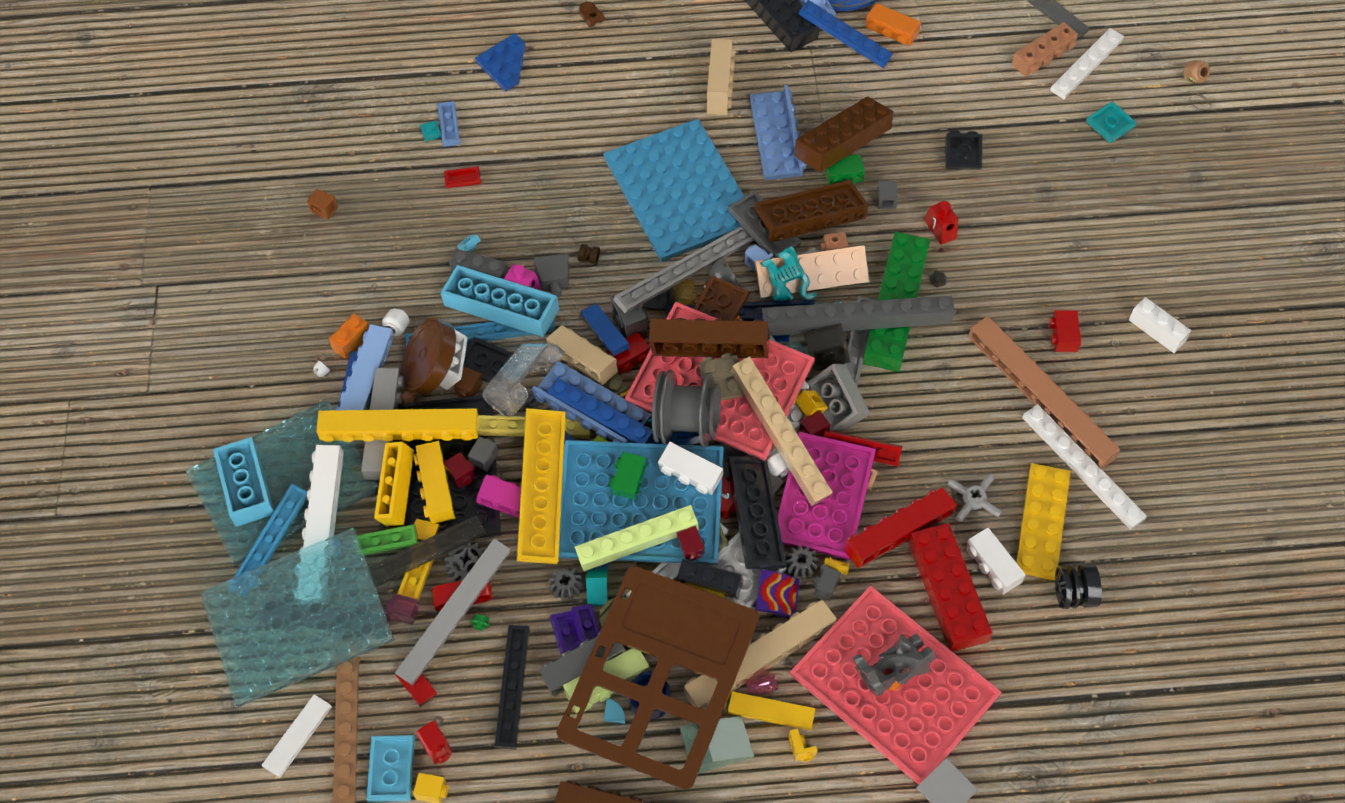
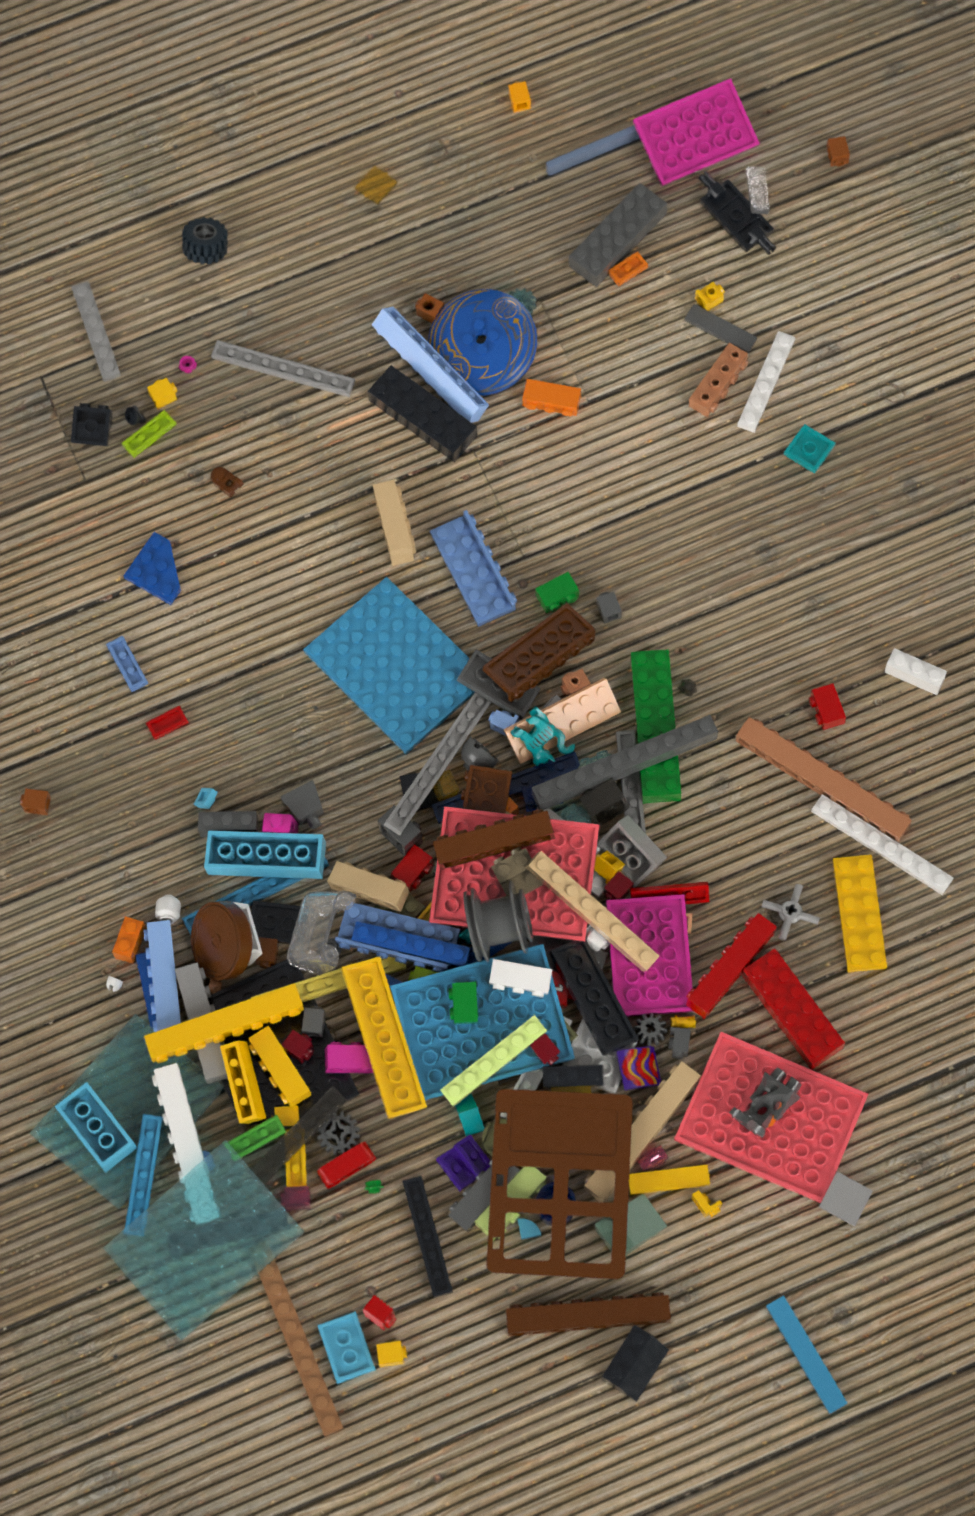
camera: 15 degrees left, 10 degrees up
(296, 736) = (248, 1348): white tile -> none
(420, 691) = (337, 1264): red tile -> none
(430, 130) = (111, 678): teal plate -> none
(453, 612) = (347, 1186): light grey tile -> none
(558, 580) = (447, 1123): dark grey gear -> none
(589, 254) = (332, 771): dark brown wheel -> none
(605, 329) = (380, 851): blue tile -> none
(843, 134) = (545, 554): reddish brown brick -> none
(845, 33) = (507, 428): blue plate -> none
(942, 222) = (672, 621): red torso -> none
(963, 150) = (670, 531): black plate -> none
(995, 561) = (826, 969): white brick -> none
(1078, 586) = (904, 973): black wheel -> none
(1196, 71) = (880, 361): medium nougat head -> none

